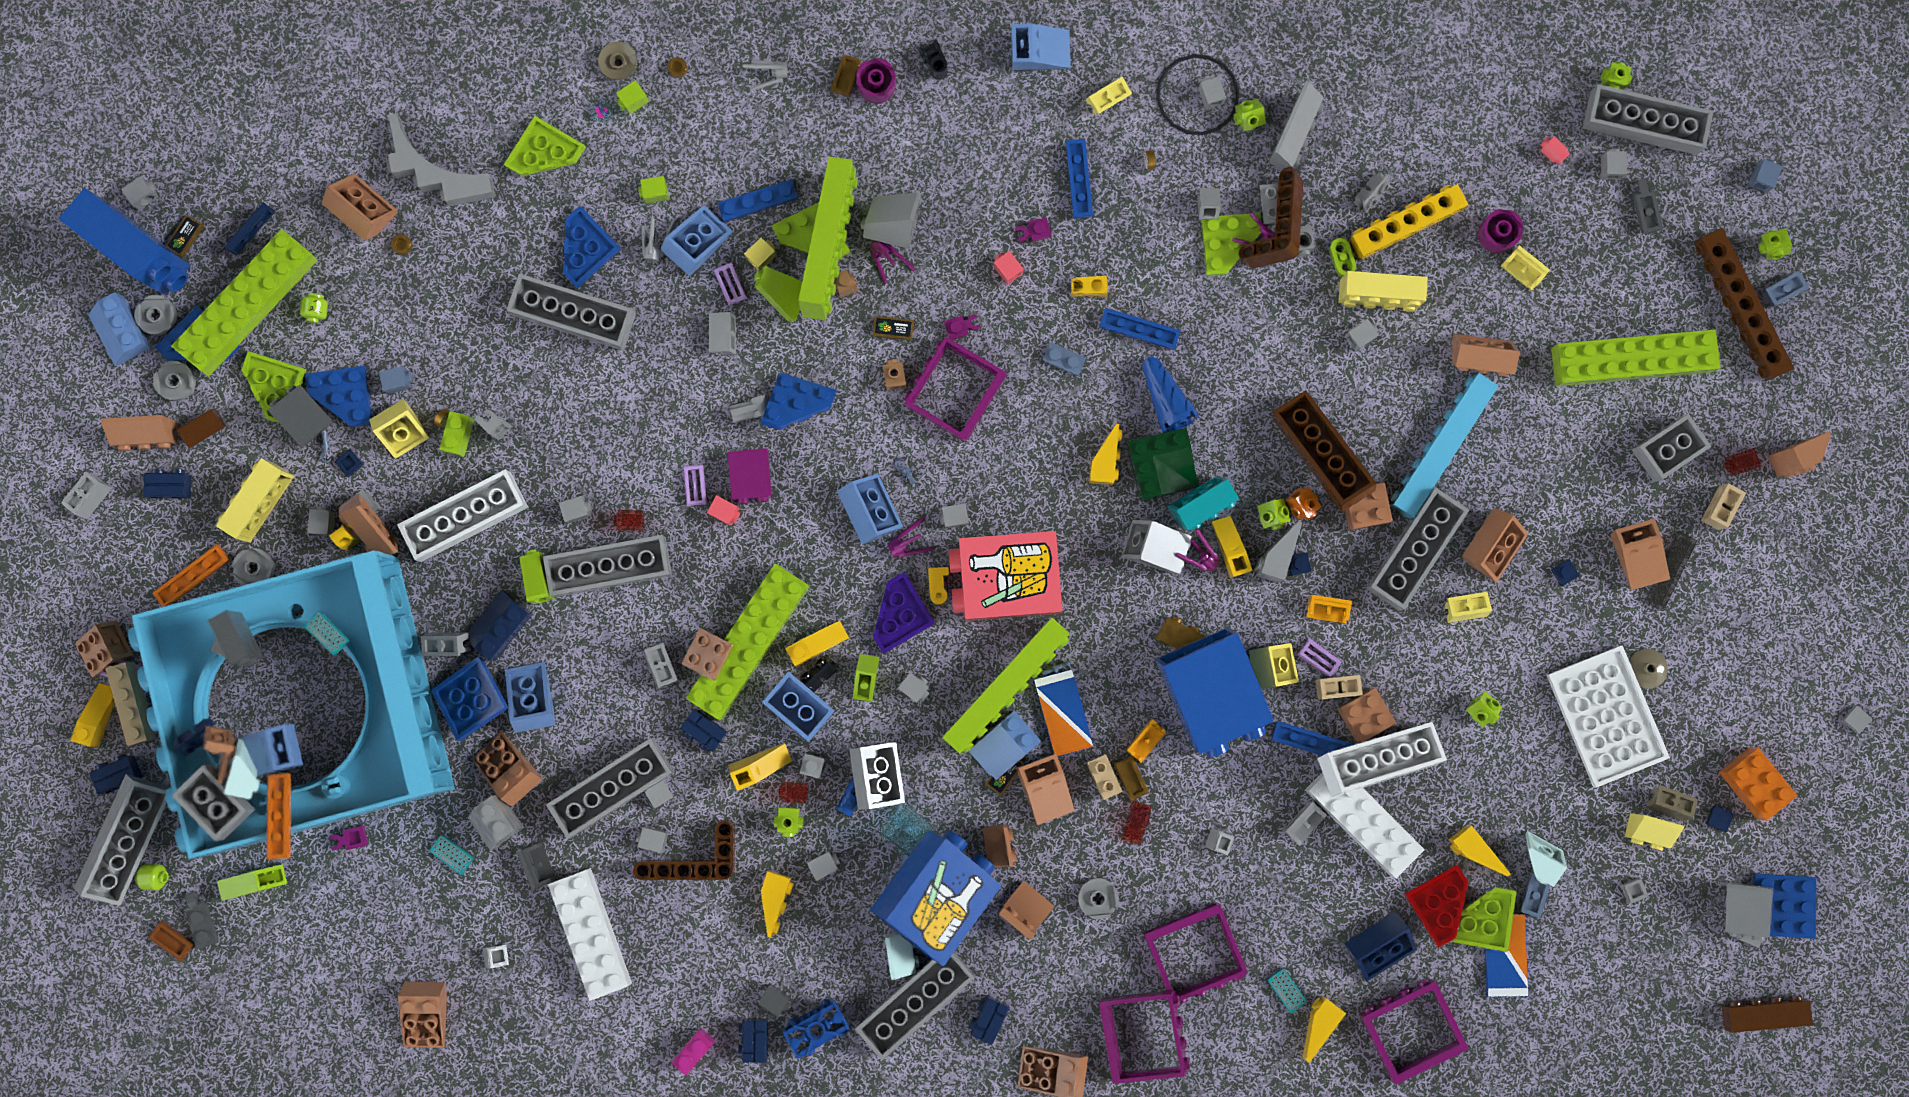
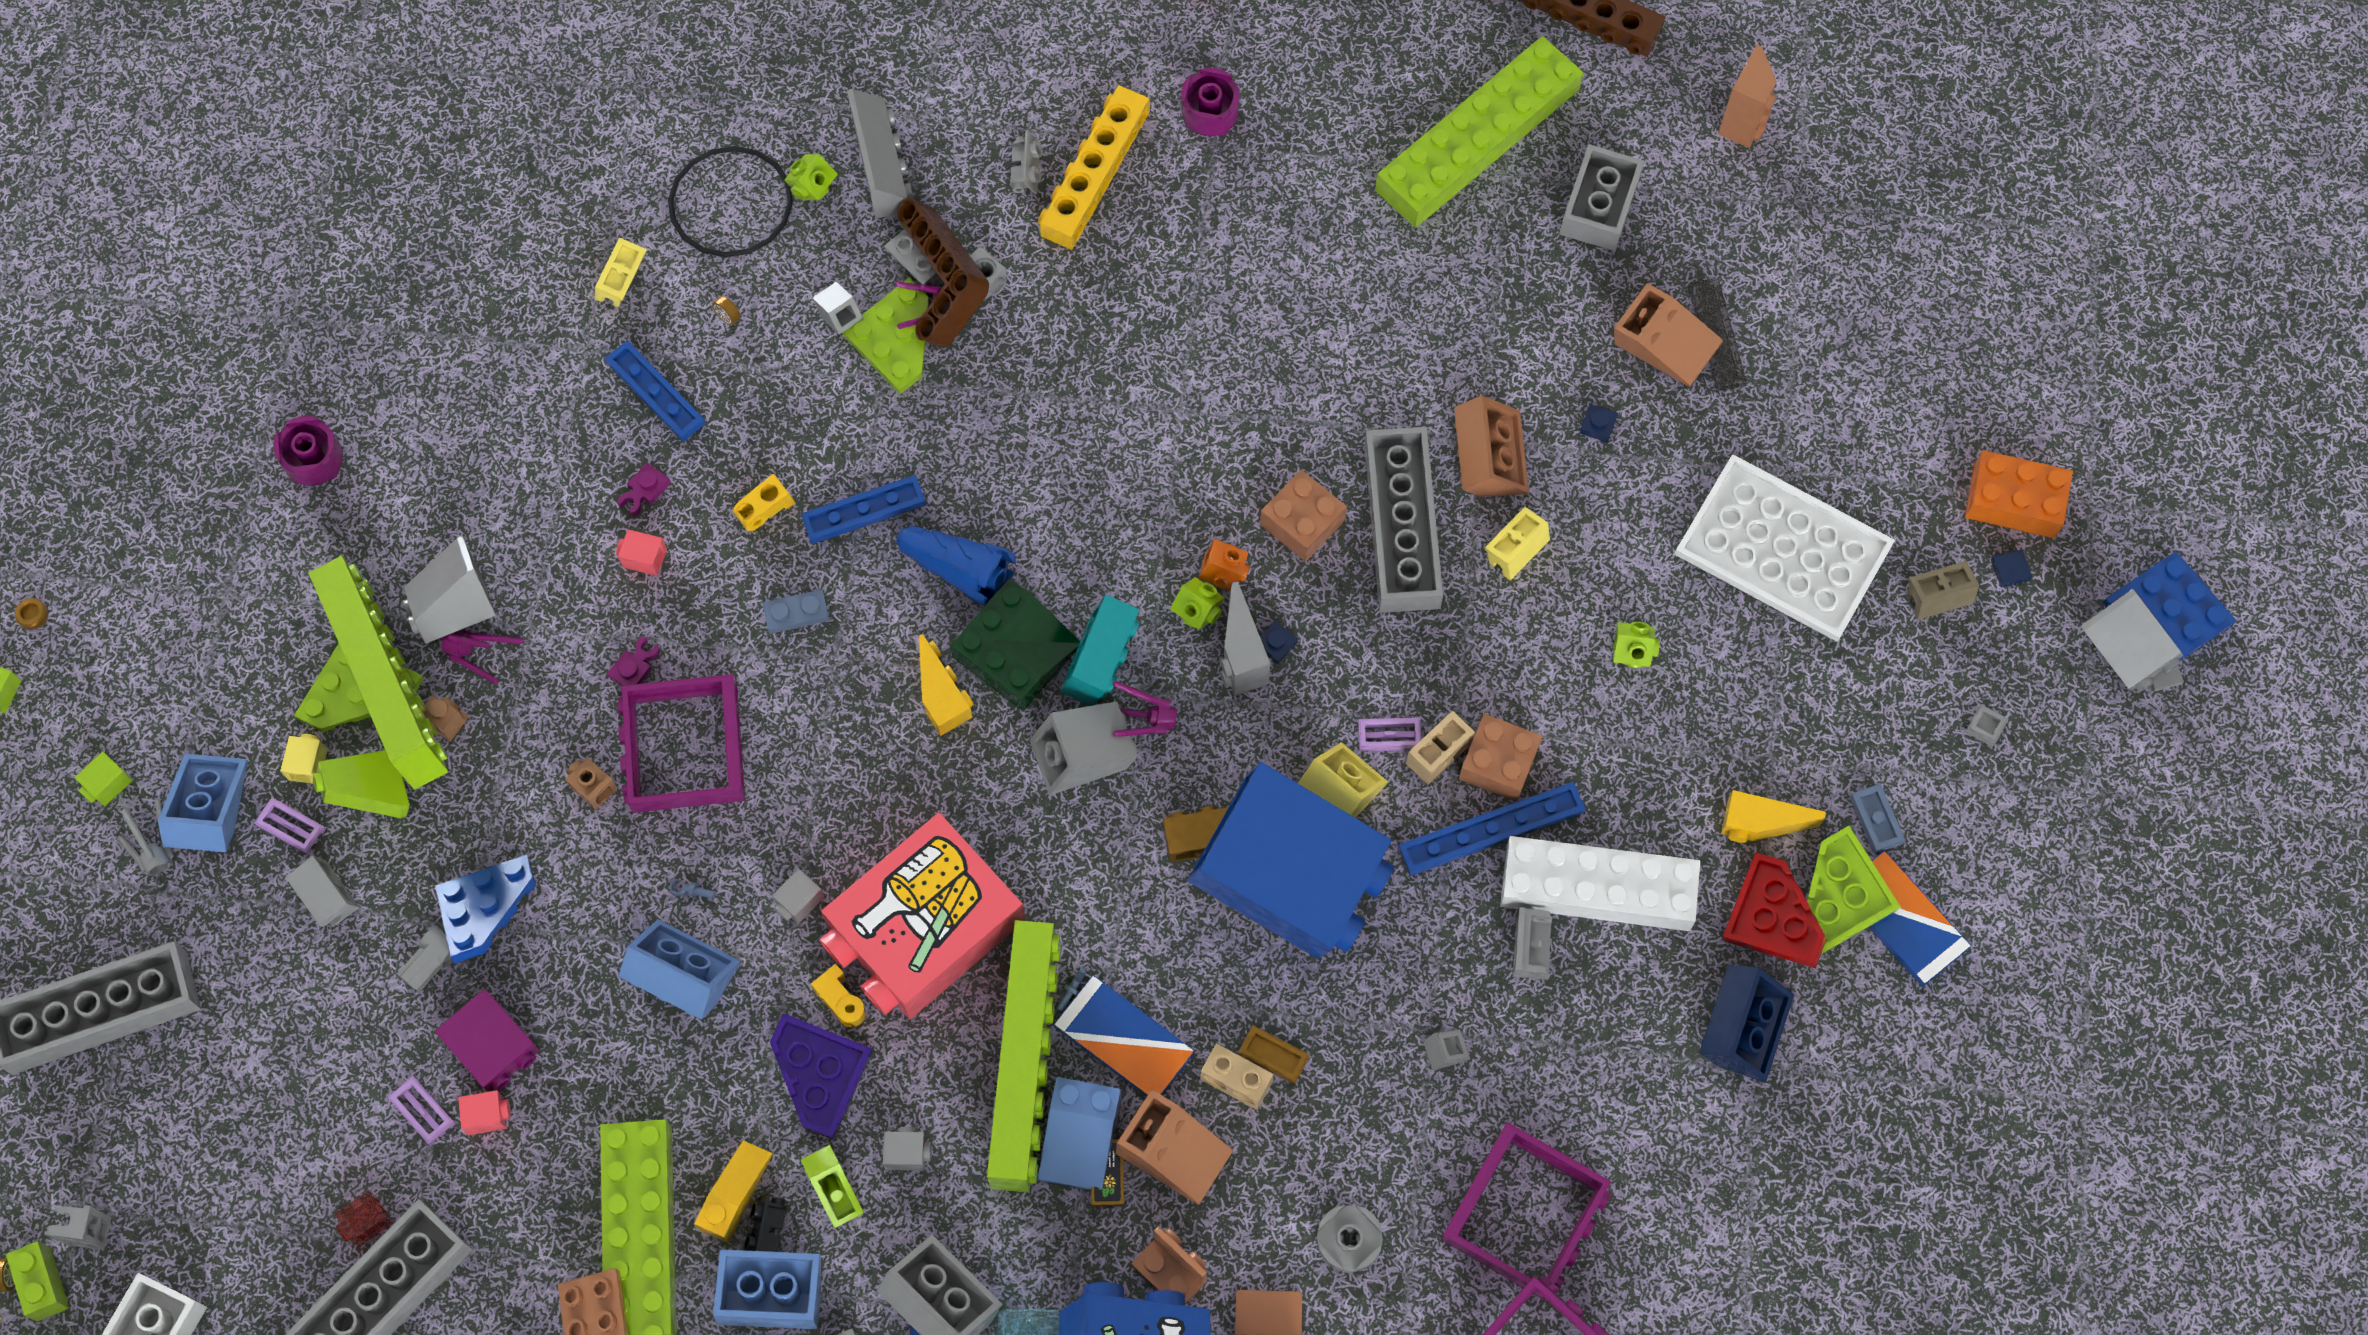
camera: 35 degrees left, 15 degrees down
(575, 509) = (275, 1259): light grey brick -> none
(585, 247) = (57, 915): blue plate -> none
(757, 200) = (254, 699): blue plate -> none
(779, 70) = (169, 526): light grey plant -> none
(845, 75) = (265, 475): pearl gold tile -> none
(893, 328) = (547, 728): tile -> none
(898, 546) = (749, 985): magenta plant -> none
(933, 57) = (363, 377): black piece -> none
(1039, 47) = (490, 277): medium blue slope -> none
(1136, 822) = (1323, 1105): clear red slope -> none
(1146, 740) = (1255, 993): light orange hinge -> none
(1212, 92) = (745, 185): light grey brick -> none
(1231, 547) = (1179, 681): yellow slope -> none
(1286, 990) = (1678, 1170): tile -> none
(1322, 1022) = (1753, 1175): yellow slope -> none
(1324, 451) = (1199, 484): reddish brown brick -> none
(1328, 609) = (1353, 666): light orange hinge -> none
(1342, 258) = (1051, 258): lime plate -> none
(1362, 334) = (1140, 327): light grey brick -> none
(1381, 759) = (1559, 789): white brick -> none
(1382, 290) = (1124, 259): light yellow brick -> none
(1428, 1061) = (1892, 1170): magenta window -> none
(1443, 446) = (1338, 382): medium azure brick -> none
(1484, 354) = (1303, 247): nougat slope -> none
(1525, 267) = (1272, 123): light yellow hinge -> none
(1546, 859) = (1854, 765): light aqua slope -> none
(1641, 660) = (1794, 472): dark tan dish -> none
(1653, 831) = (1946, 636): light yellow slope -> none
(1723, 506) = (1714, 218): tan brick -> none
(1742, 462) = (1695, 157): clear red brick -> none
(1767, 1014) = (2260, 750): reddish brown brick -> none
(1857, 719) = (2065, 343): light grey tile -> none

